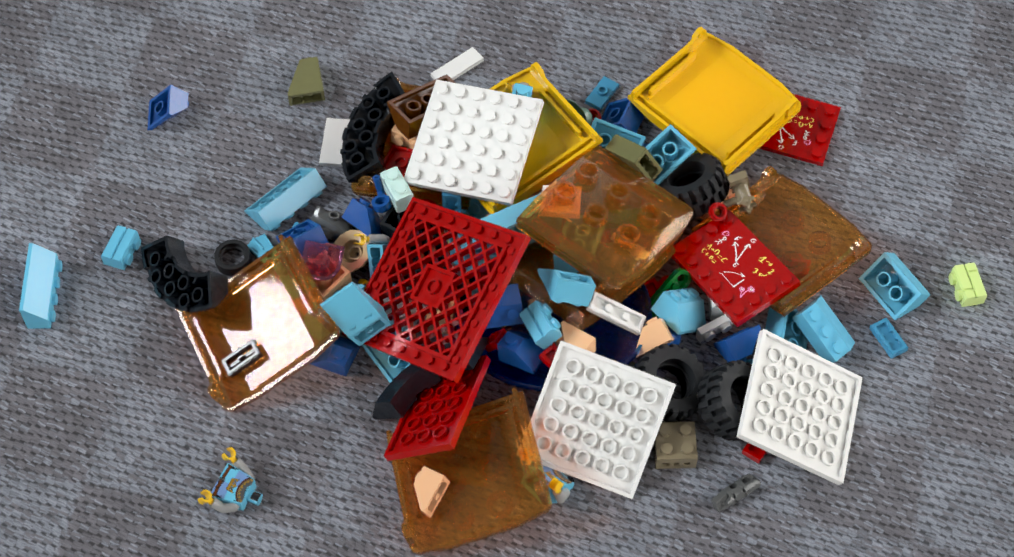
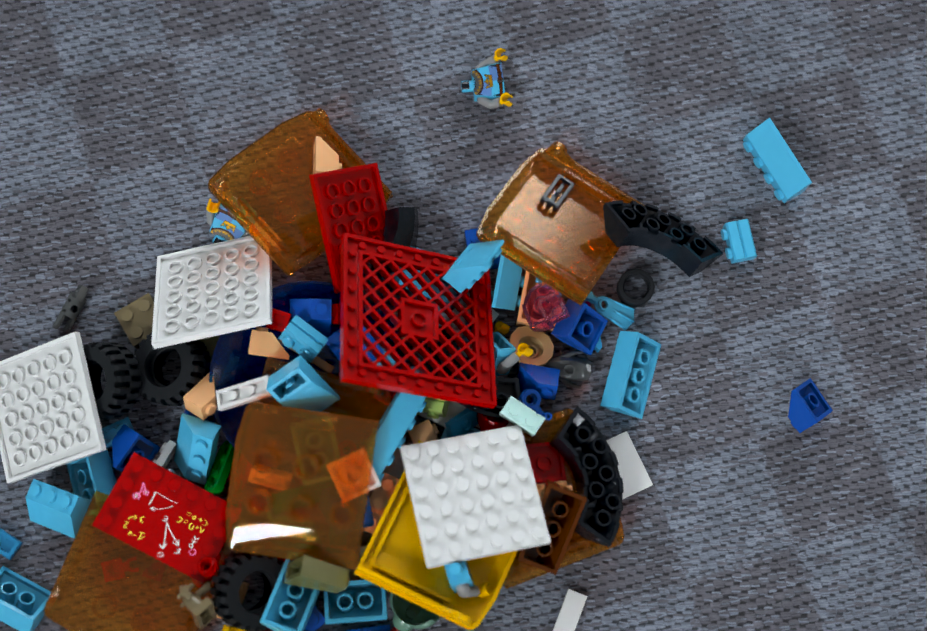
camera: 145 degrees right, 20 degrees up
(306, 83) = (698, 514): olive slope -> none

